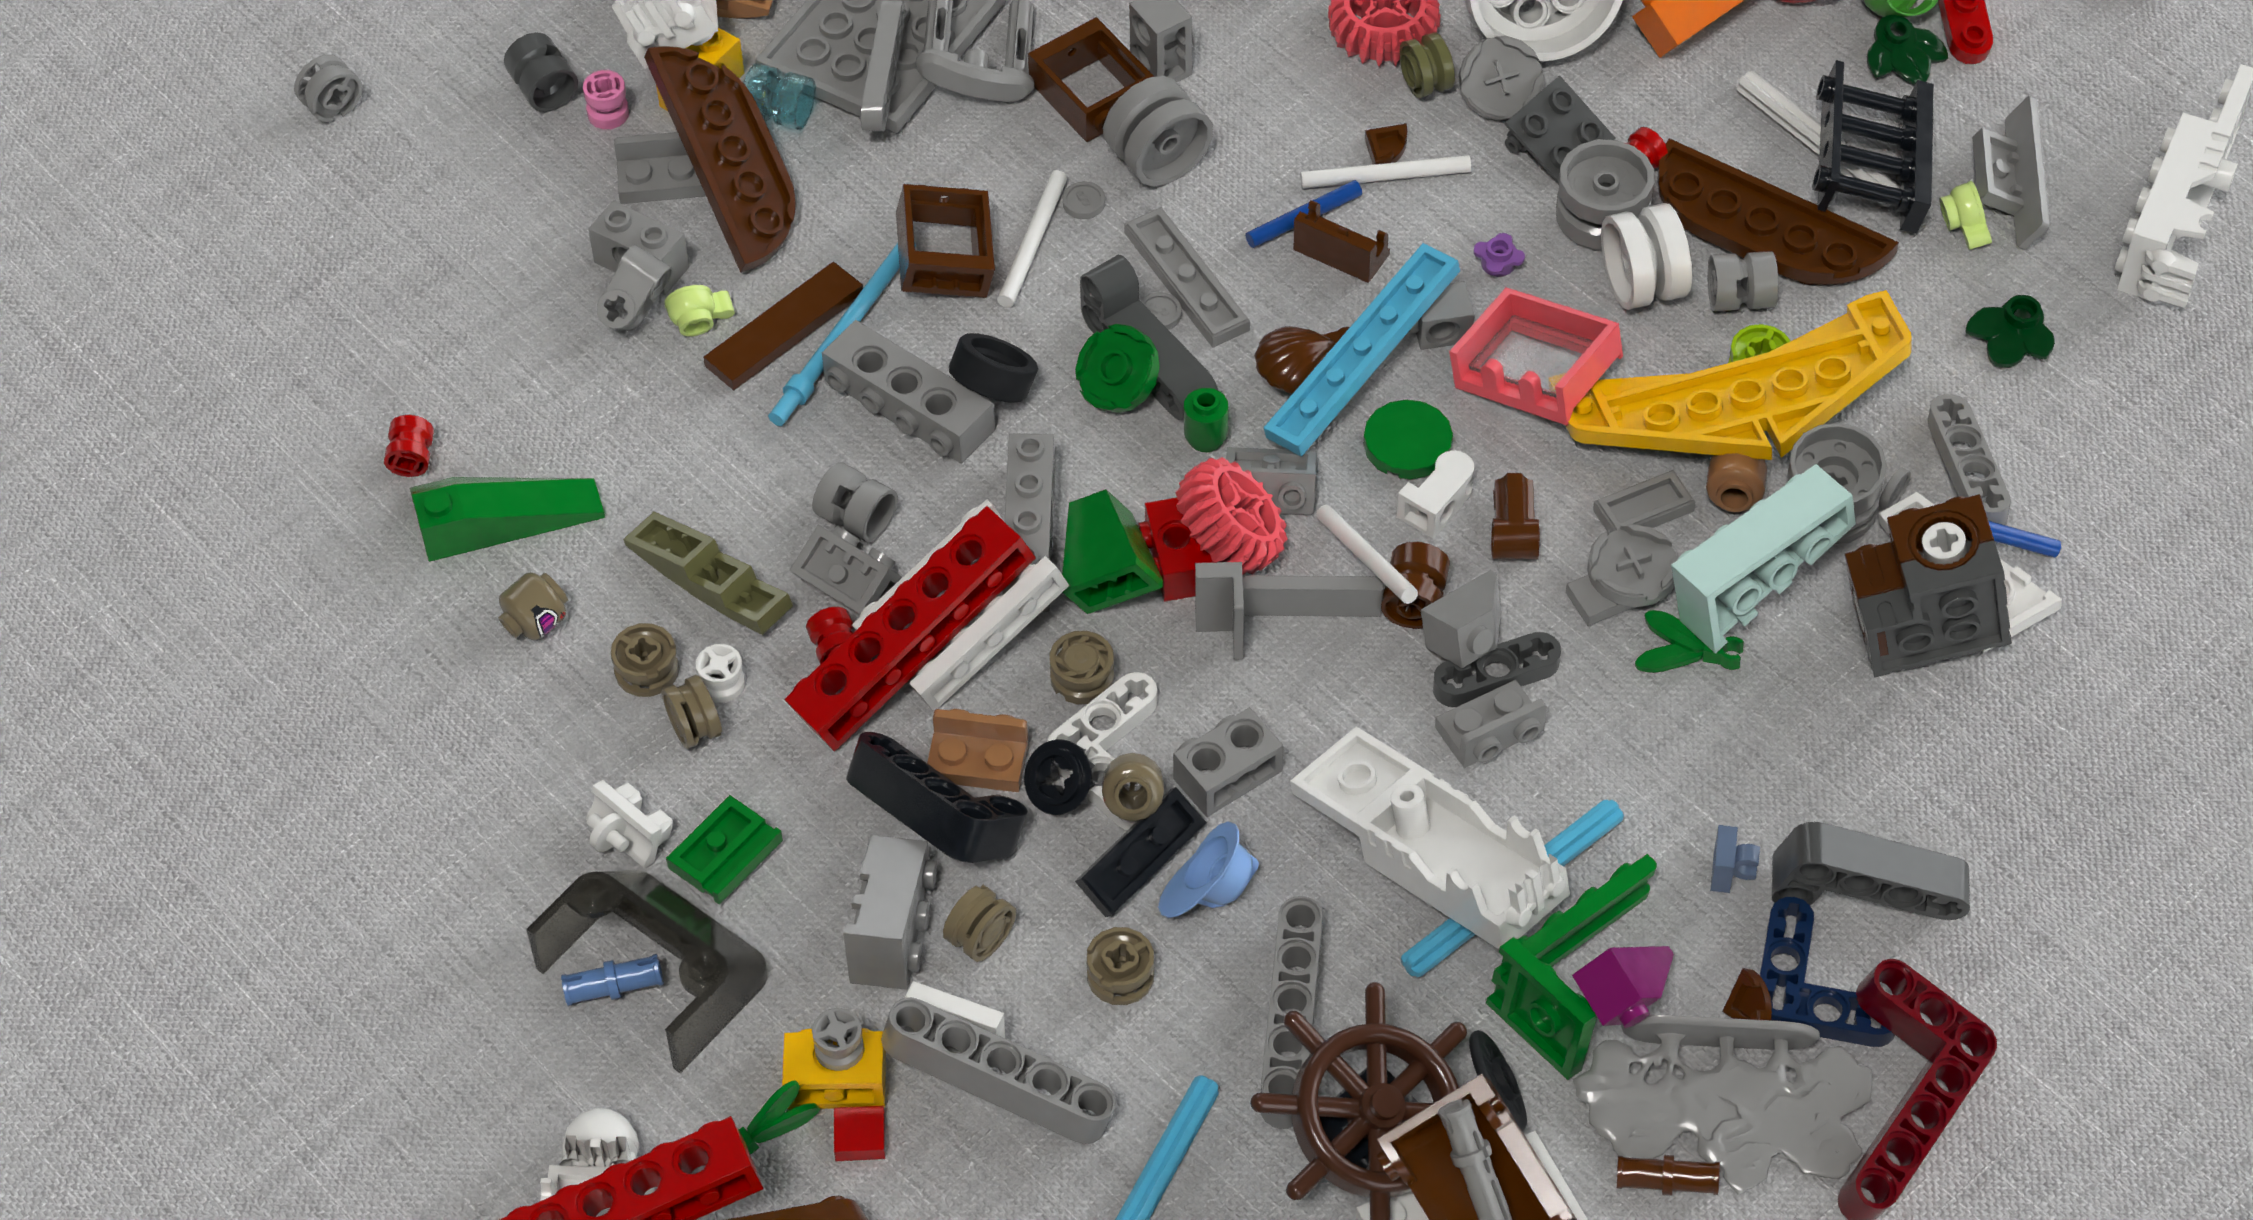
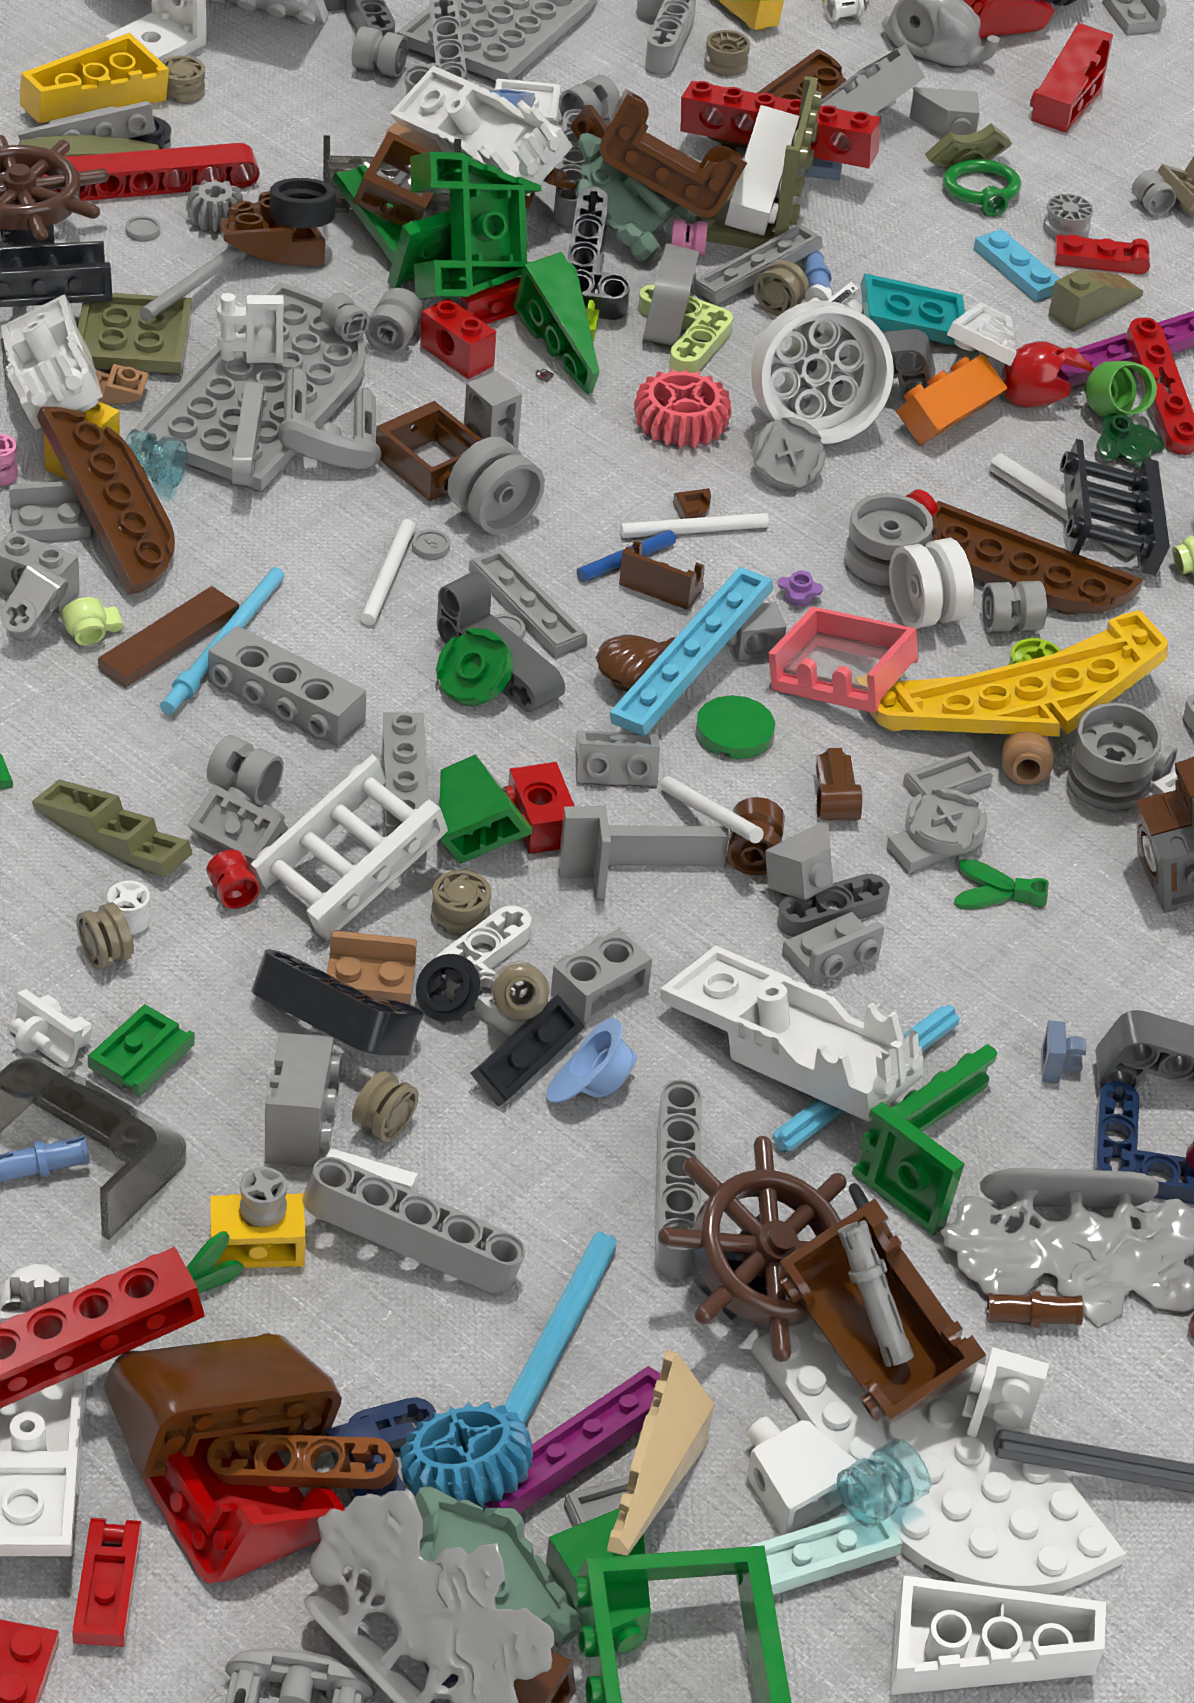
camera: 10 degrees left, 10 degrees down
(644, 657) = (58, 895): dark tan wheel -> none
(859, 1133) = (283, 1286): red tile -> none
(933, 625) = (306, 863): red brick -> none
(945, 271) = (307, 590): reddish brown window -> none
(993, 368) = (363, 664): black tyre -> none
(1120, 963) = (515, 1141): dark tan wheel -> none
(1206, 419) = (556, 707): green brick -> none
(1231, 515) = (588, 773): coral gear -> none
(1427, 65) = (724, 443): olive wheel -> none
(1439, 495) = (768, 768): white leg -> none
(1554, 126) = (834, 491): dark grey hinge -> none
(1625, 982) = (983, 1139): magenta slope -> none
(1749, 998) = (1091, 1156): reddish brown tile -> none
(1759, 554) = (1060, 803): light aqua wedge -> none

